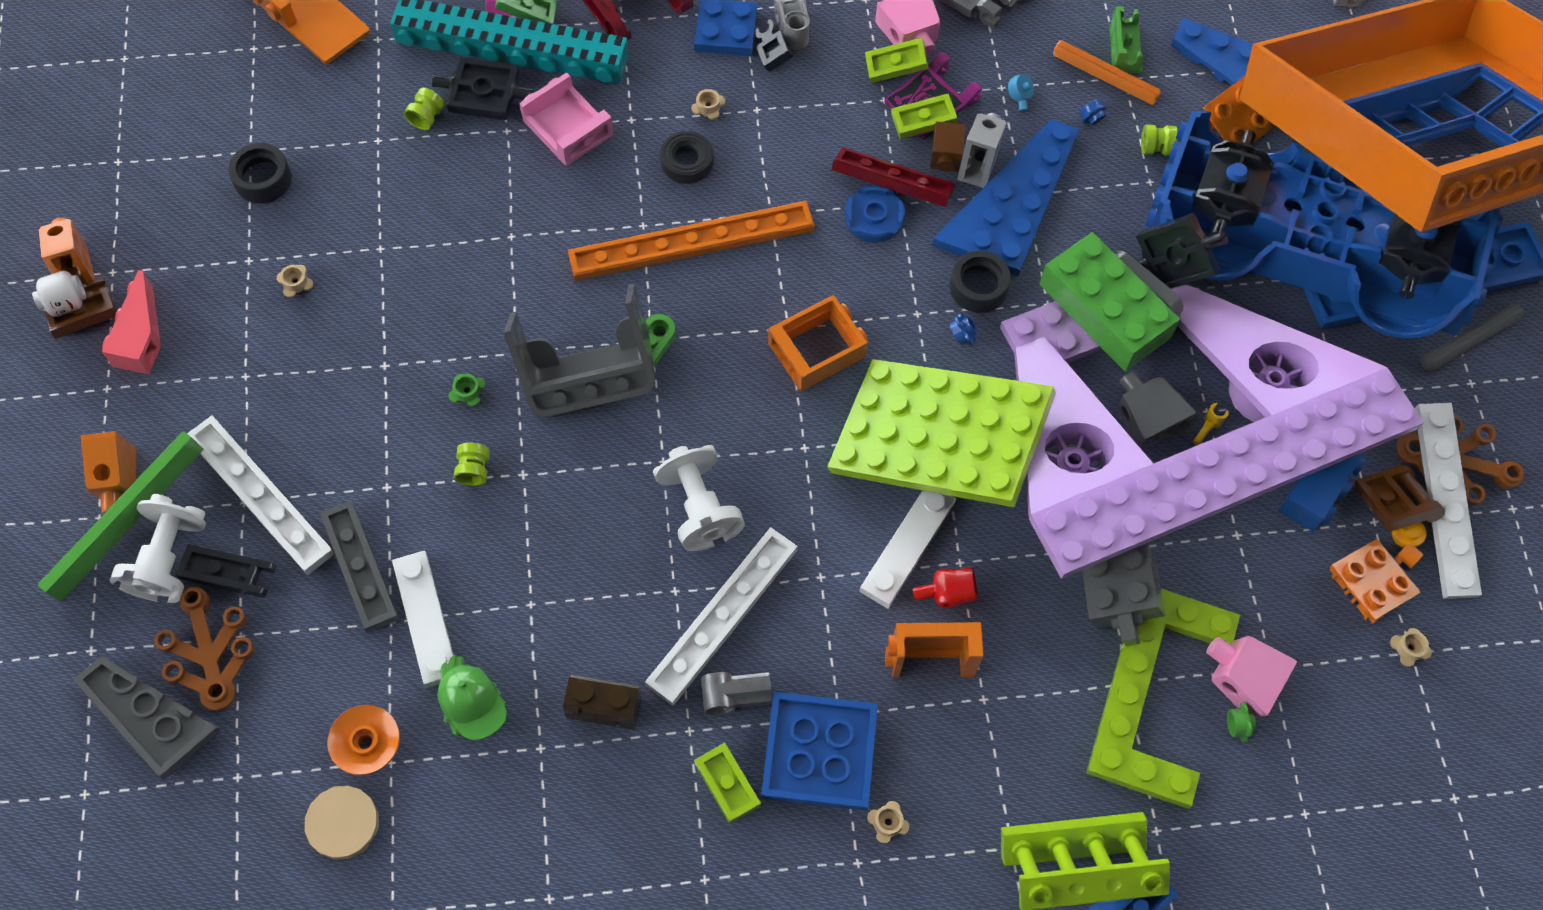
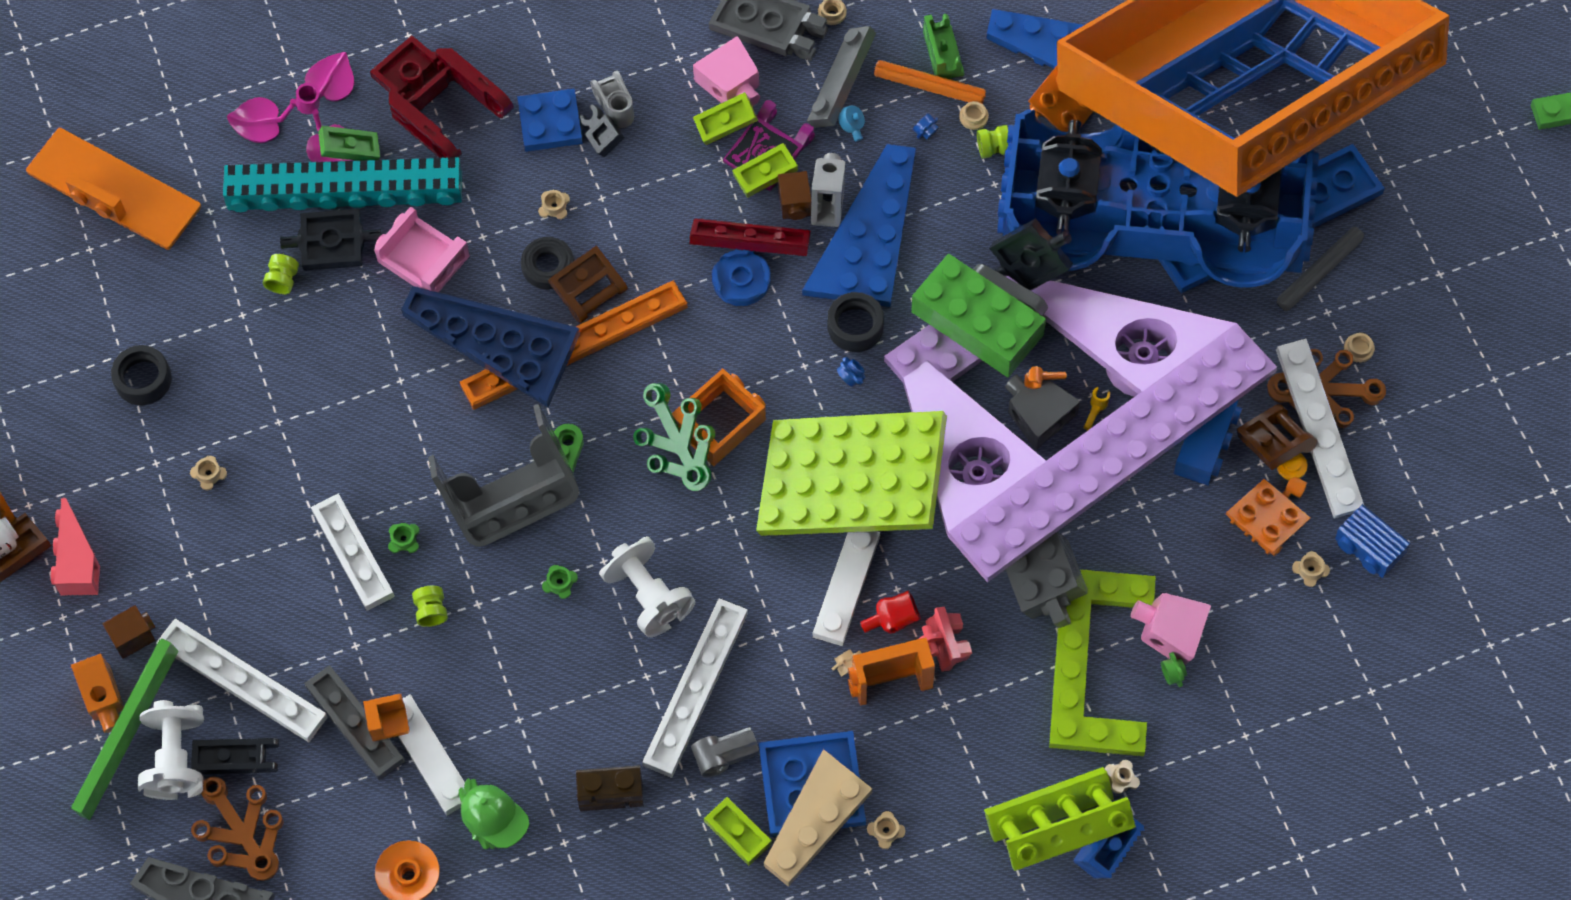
camera: 10 degrees left, 0 degrees up
(163, 417) = (130, 631): none -> reddish brown brick
(389, 568) = (386, 717): none -> orange panel
(411, 392) = (352, 552): none -> white plate
(609, 462) = (559, 573): none -> bright green plate
(626, 224) = (510, 344): none -> dark blue wing
(717, 175) = (581, 276): none -> reddish brown plate
(771, 355) = (678, 440): none -> plant
(819, 786) = (818, 814): none -> tan wing
(886, 627) = (844, 662): none -> tan plate
(996, 630) = (941, 640): none -> coral hips
(1020, 47) = (841, 77): none -> dark grey plate
(1143, 111) = (973, 116): none -> tan plate
(1155, 835) = (1119, 784): none -> tan plate
(1156, 375) = (1034, 377): none -> orange hand
(1484, 633) = (1371, 541): none -> blue brick
(1504, 424) = (1360, 346): none -> tan plate

